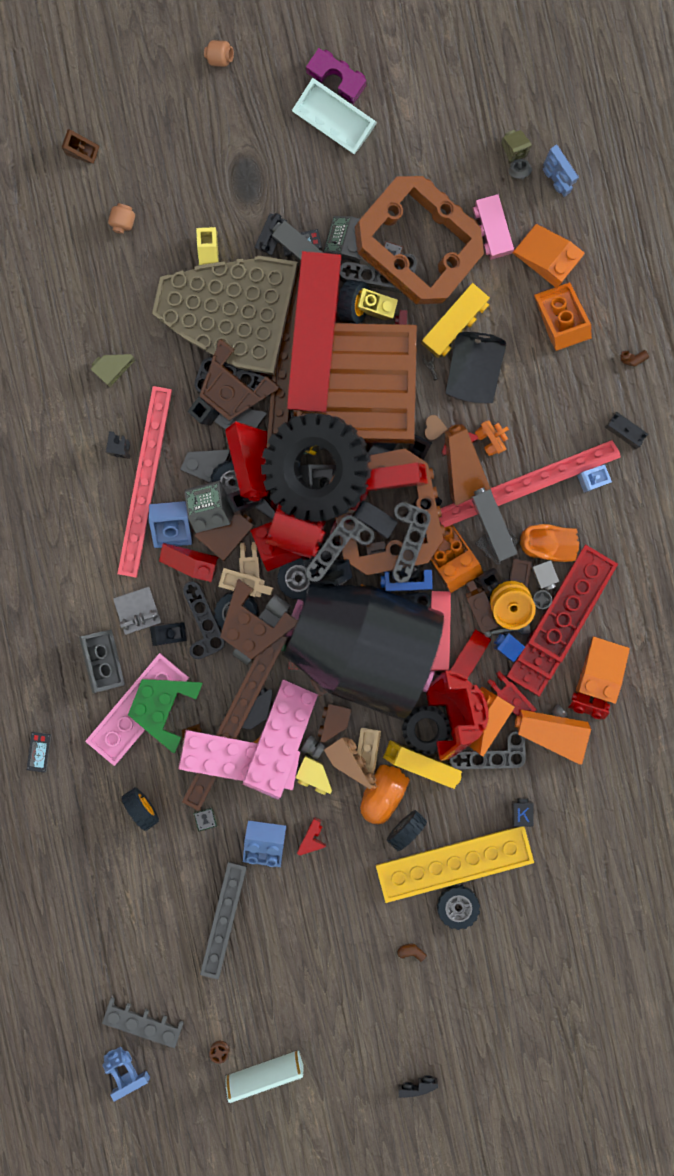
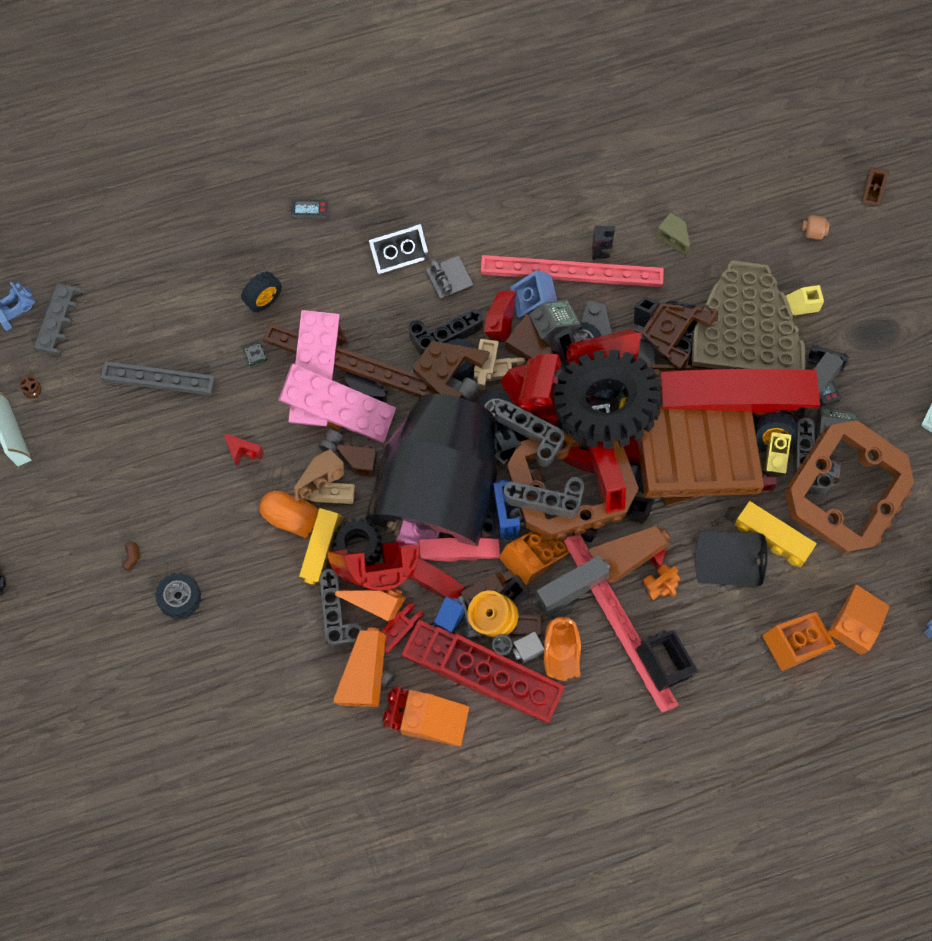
camera: 80 degrees right, 20 degrees down
(118, 730) = (356, 285): bright pink plate -> none
(154, 704) = (361, 296): green wing -> none
(168, 634) = (430, 302): black slope -> none
(264, 843) = (234, 406): medium blue slope -> none
(314, 774) = (304, 445): light yellow slope -> none
(375, 519) = (563, 463): black slope -> none
(406, 830) = (254, 533): black wheel -> none
(435, 428) = (668, 523): medium nougat tile -> none
(454, 863) = (223, 589): yellow plate -> none
(493, 227) = (877, 561): bright pink brick -> none
(522, 813) = (278, 649): black brick -> none
(567, 432) = (678, 654): none -> black window
(594, 478) = (635, 689): light blue slope -> none
(626, 430) = (691, 718): black hinge -> none
(633, 360) = (766, 719): reddish brown arm -> none

